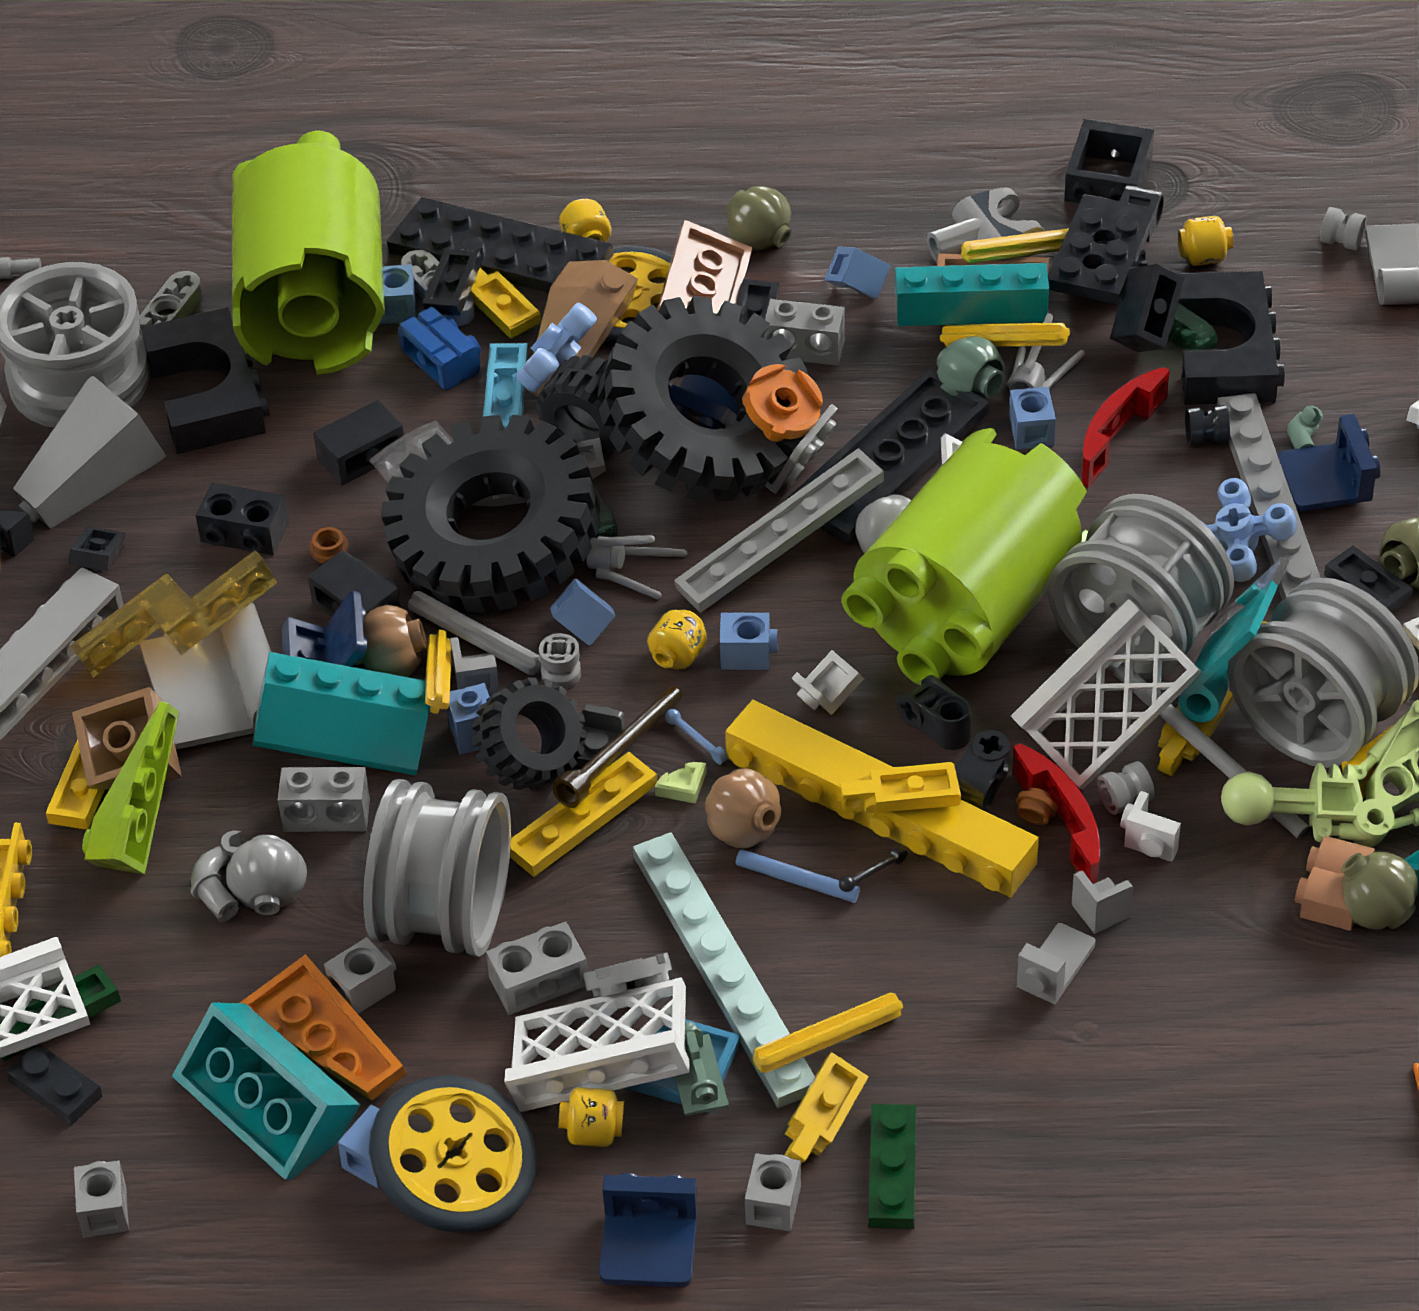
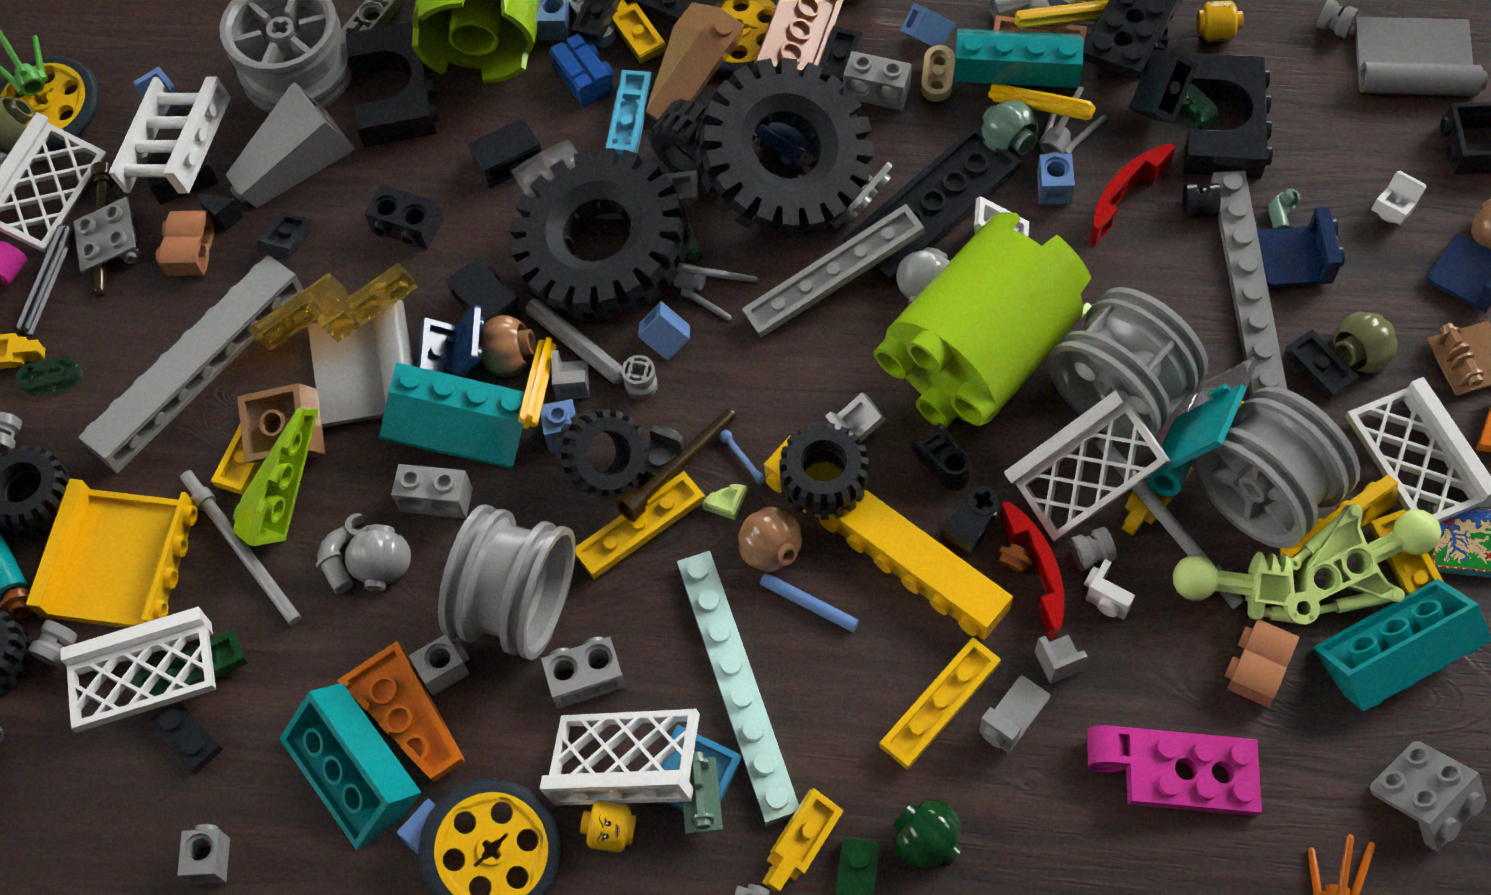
camera: 10 degrees right, 15 degrees up
(42, 840) = (205, 501): none -> light grey bar
(327, 543) = (466, 241): dark orange plate -> none
(555, 346) = (669, 86): light blue gear -> none
(613, 978) = (655, 691): light grey plate -> none
(677, 639) = (737, 366): yellow head -> none
(746, 641) = (794, 360): medium blue brick -> none
(771, 417) = (838, 175): orange plate -> none
(802, 748) = (824, 445): none -> black tyre
(827, 1032) = (813, 766): yellow axle -> none
(848, 883) = (849, 618): black hinge -> none
(876, 320) = (938, 75): none -> tan plate
(902, 789) = (904, 541): yellow hinge -> none
(967, 960) = (940, 703): none -> yellow plate
(970, 1089) = (927, 834): none -> dark green plant
(1226, 1009) = (1151, 772): none -> dark pink hinge
(1240, 530) = (1217, 275): light blue gear -> none
(1379, 890) = (1299, 679): olive plant -> none

